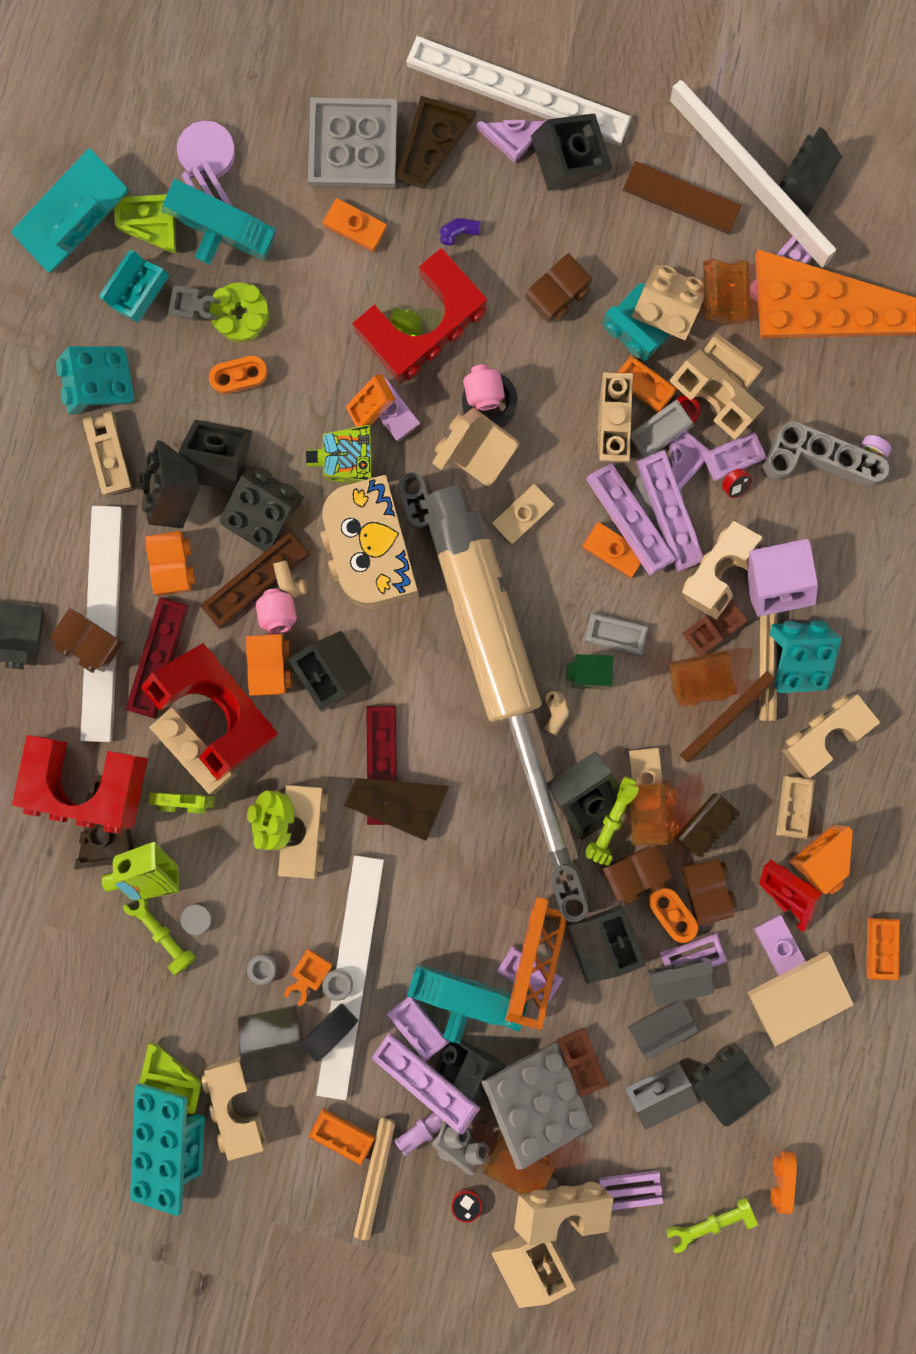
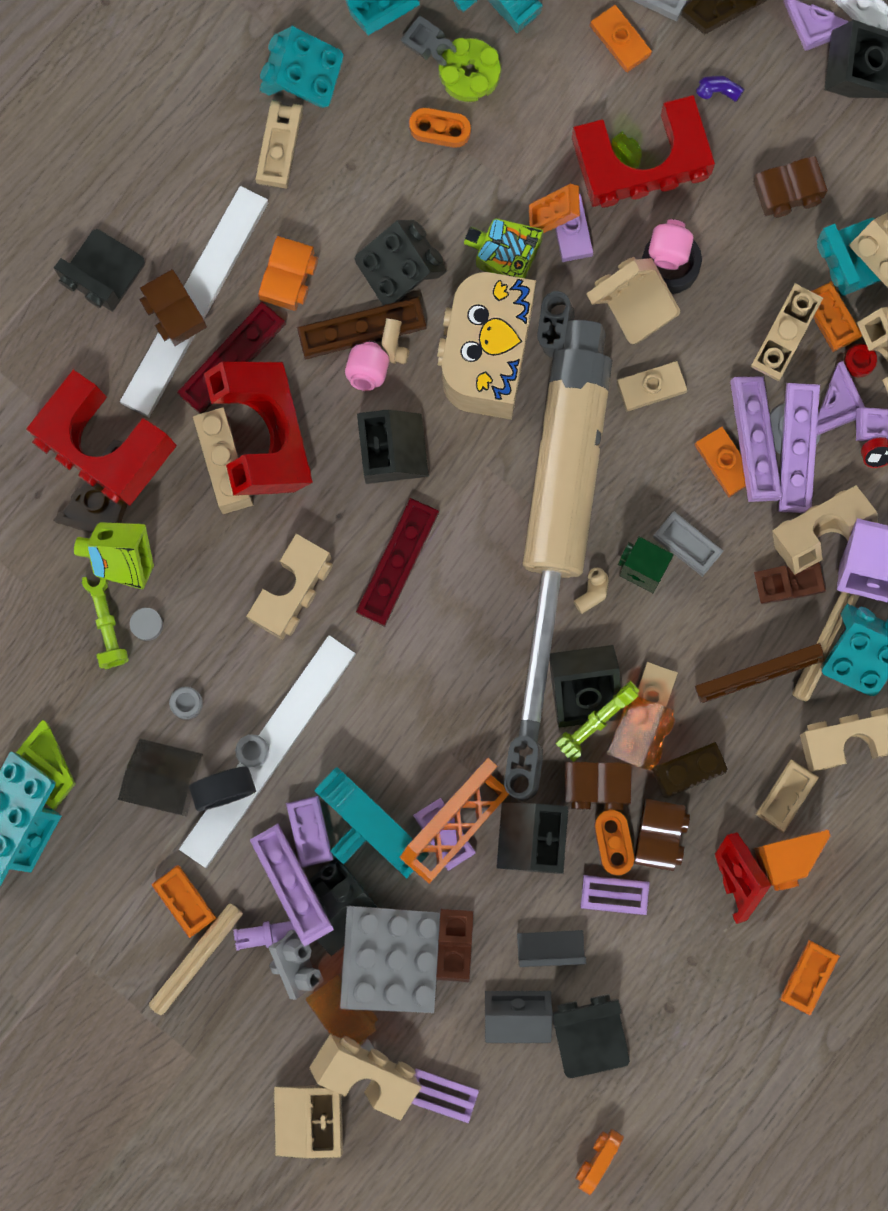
camera: 30 degrees right, 5 degrees down
(168, 487) = (321, 199): pearl dark grey slope -> none
(169, 801) = (176, 497): lime wing -> none
(217, 453) = (379, 191): pearl dark grey slope -> none
(238, 1134) = (84, 849): tan arch -> none
(268, 665) = (334, 412): orange brick -> none
(271, 820) = (265, 559): lime plate -> none
(310, 973) = (230, 727): orange plate -> none
(398, 804) = (395, 605): dark brown wing -> none
(466, 1205) = (272, 1030): tile -> none
(661, 429) = (827, 365): light grey tile -> none
(681, 981) = (591, 911): dark grey panel -> none
(702, 679) = (752, 625): clear orange bracket -> none
(713, 1224) = (509, 1169): lime piece -> none
(779, 944) = (706, 928): lavender plate -> none
(800, 998) = (702, 986): tan tile -> none

